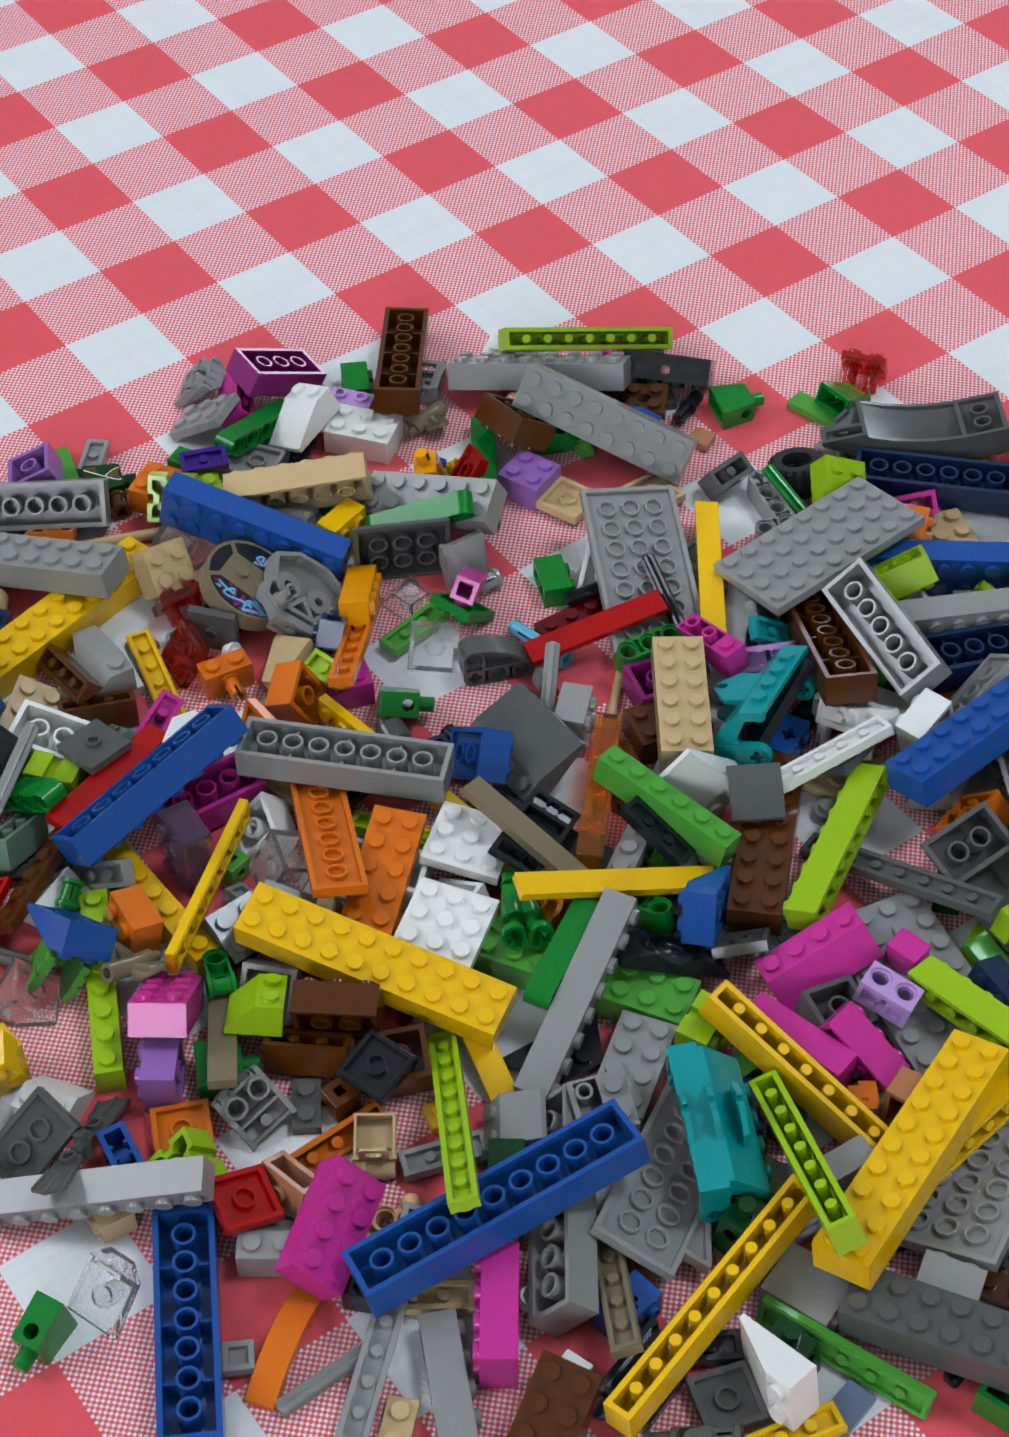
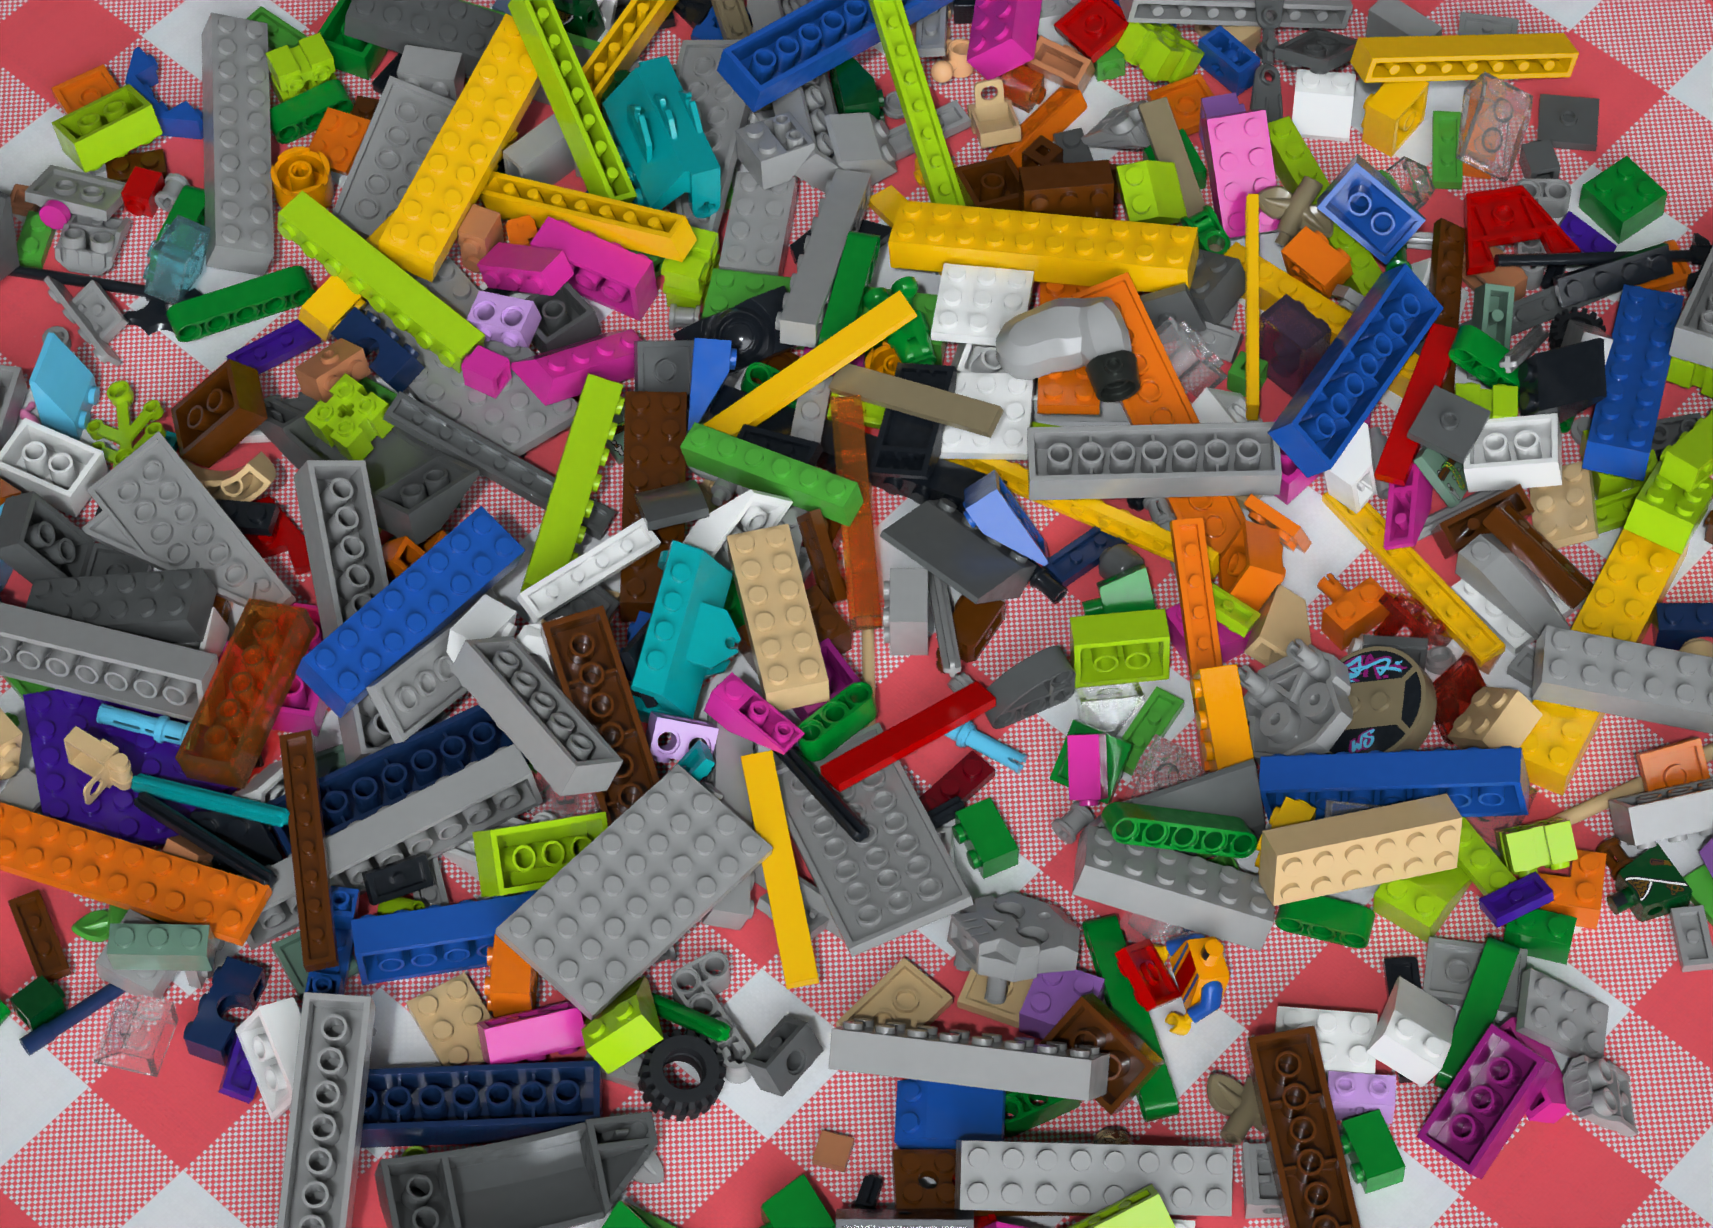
camera: 170 degrees right, 10 degrees up
(114, 624) = (1523, 666): none -> light grey plate
(329, 632) = (1238, 649): brick -> none
(376, 1066) = (1005, 153): black plate -> none
(381, 840) = (1070, 336): none -> light grey piece
(417, 665) = (1120, 647): none -> lime brick
(533, 505) = (1012, 940): none -> light grey brick

